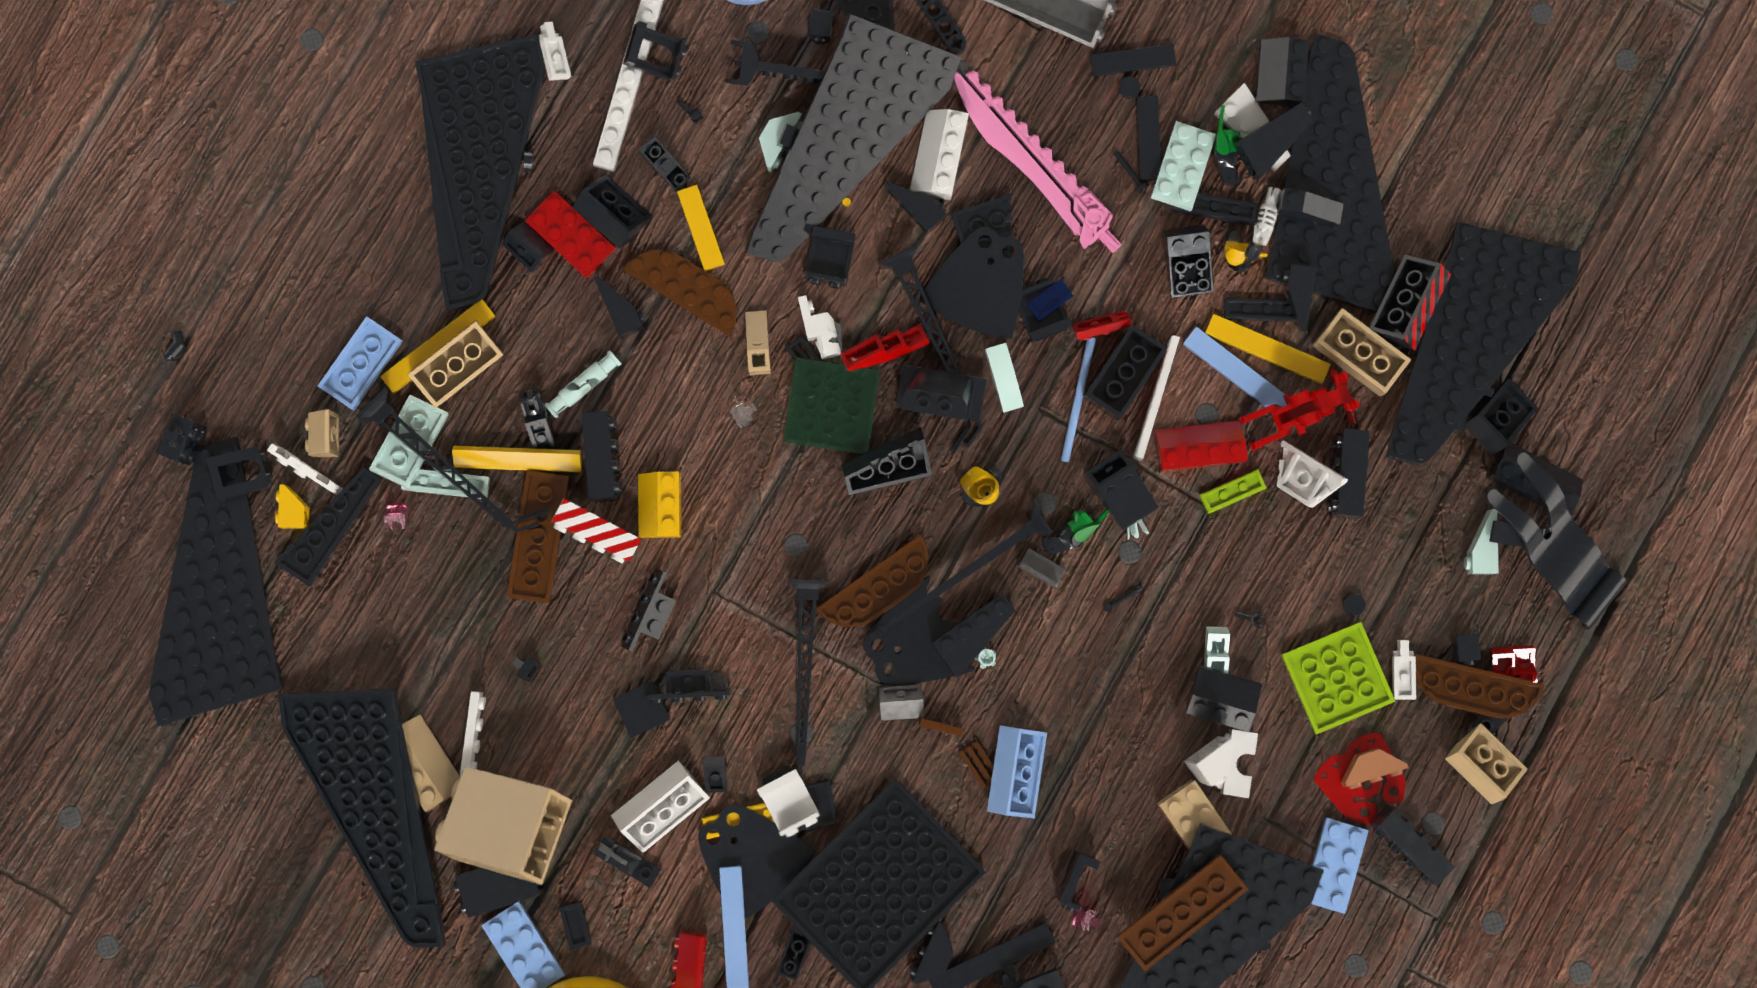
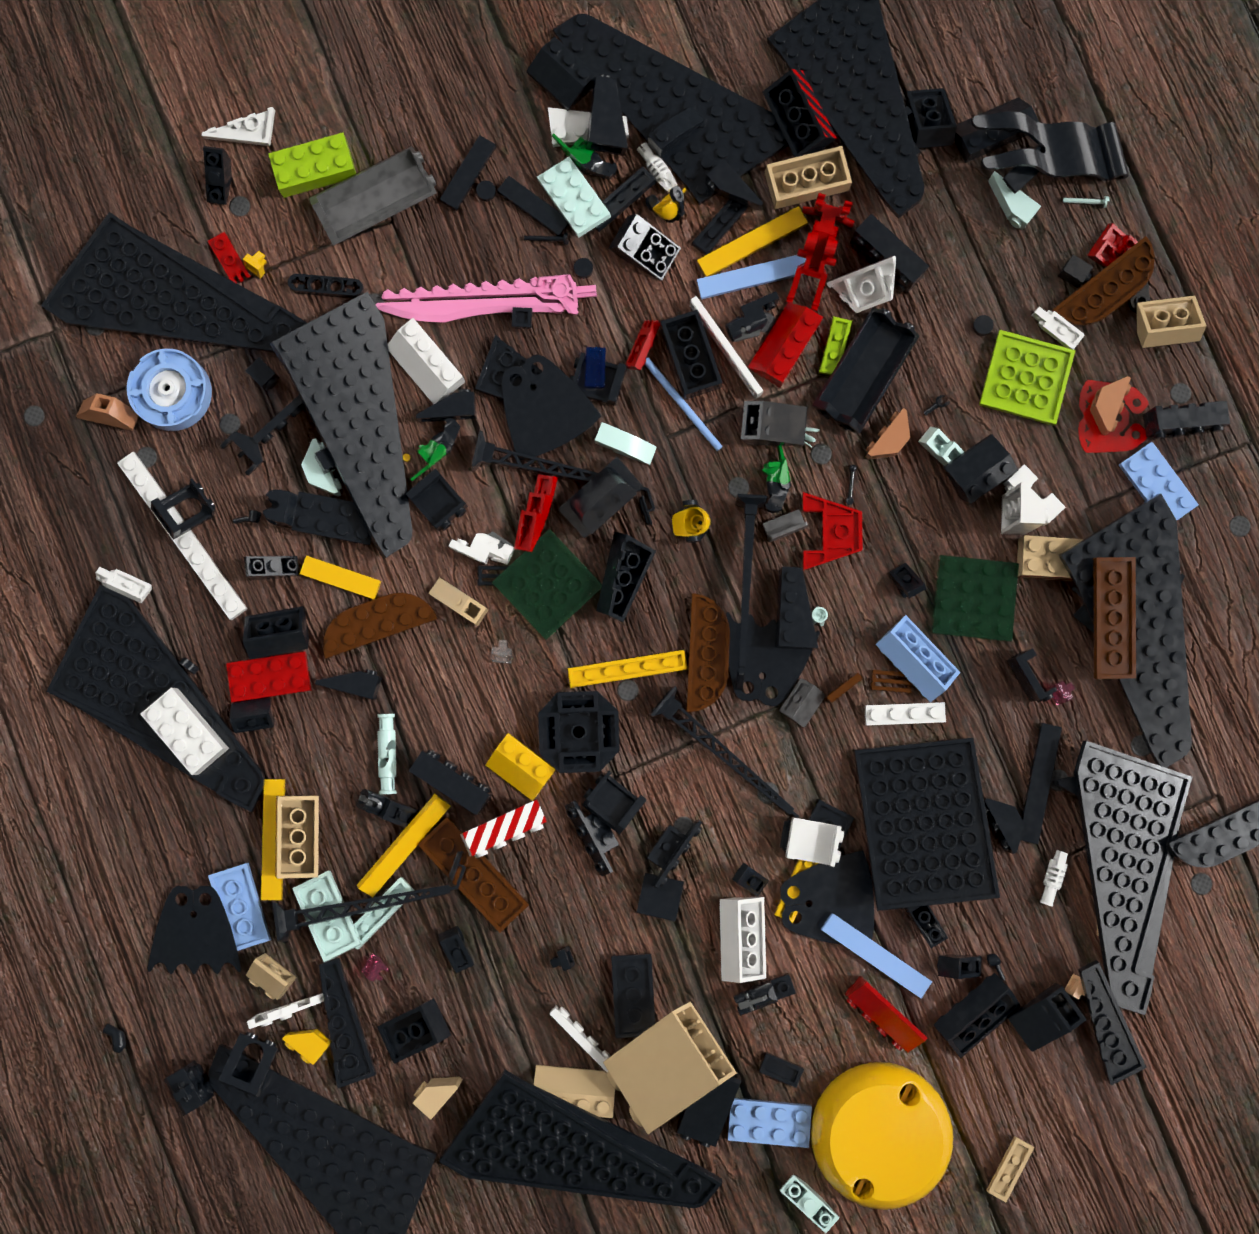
camera: 50 degrees left, 0 degrees up
(303, 345) = (193, 940): none -> black piece
(331, 647) = (434, 1094): none -> tan slope
(370, 589) = (414, 1031): none -> black slope
(465, 568) = (455, 949): none -> black plate
(470, 201) = (184, 731): none -> white brick
(542, 748) = (633, 994): none -> black plate
(689, 606) = (612, 802): none -> black panel
(709, 514) = (557, 726): none -> black piece
(737, 167) = (317, 516): none -> black hinge
(813, 530) = (627, 669): none -> yellow tile
(877, 221) = (439, 445): none -> animal
(960, 797) = (905, 713): none -> white plate
(1042, 205) = (522, 318): none -> black tile
(1075, 619) = (839, 530): none -> red wing
(1076, 710) = (907, 581): none -> black slope
(1109, 781) = (975, 598): none -> clear green plate
(1128, 222) = (583, 268): none -> black tile
(1190, 601) = (891, 438): none -> nougat slope
(1199, 401) = (752, 318): none -> black plate
(1232, 533) = (866, 370): none -> black panel
(1549, 626) = (1087, 201): none -> light aqua piece

